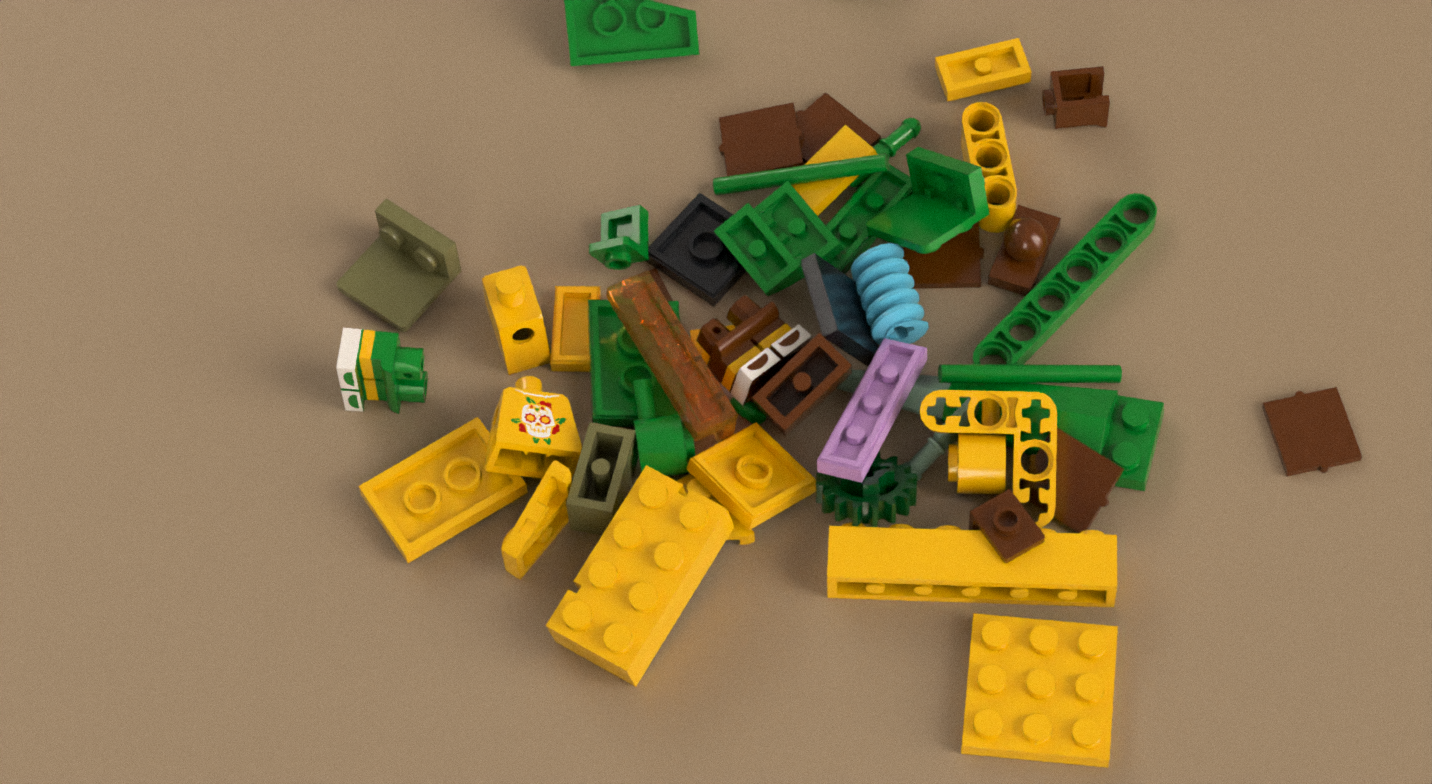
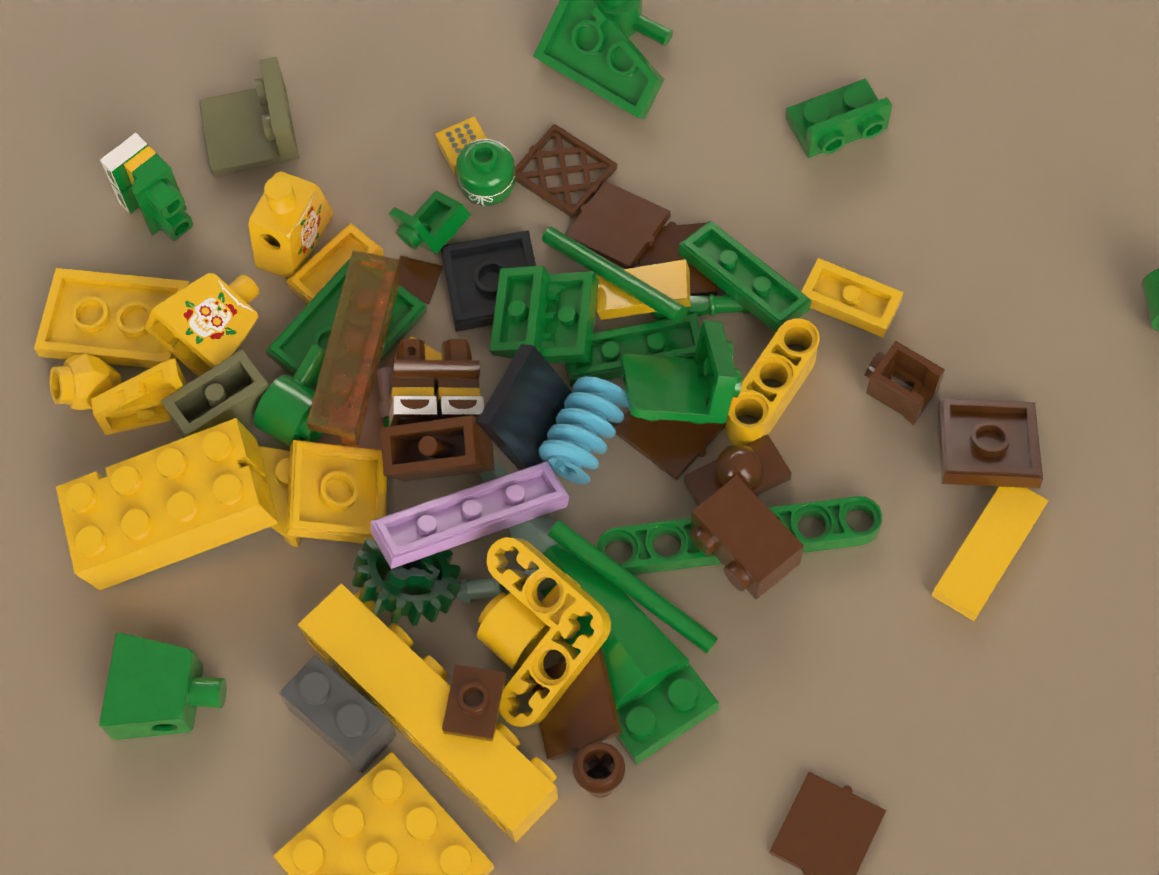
camera: 40 degrees right, 5 degrees up
(472, 549) = (81, 380): none -> yellow rock
(583, 168) = (456, 137): none -> yellow tile
(629, 171) = (486, 172): none -> green head
(671, 109) = (579, 148): none -> reddish brown window
(760, 707) = (155, 689): none -> green torso
(895, 108) = (744, 276): none -> green tile
(913, 616) = (338, 714): none -> dark grey brick
(1080, 277) = (745, 538): none -> reddish brown brick
(1134, 504) = (599, 758): none -> reddish brown cone
(1173, 98) = (989, 443): none -> reddish brown tile
(1239, 168) = (989, 550): none -> yellow tile

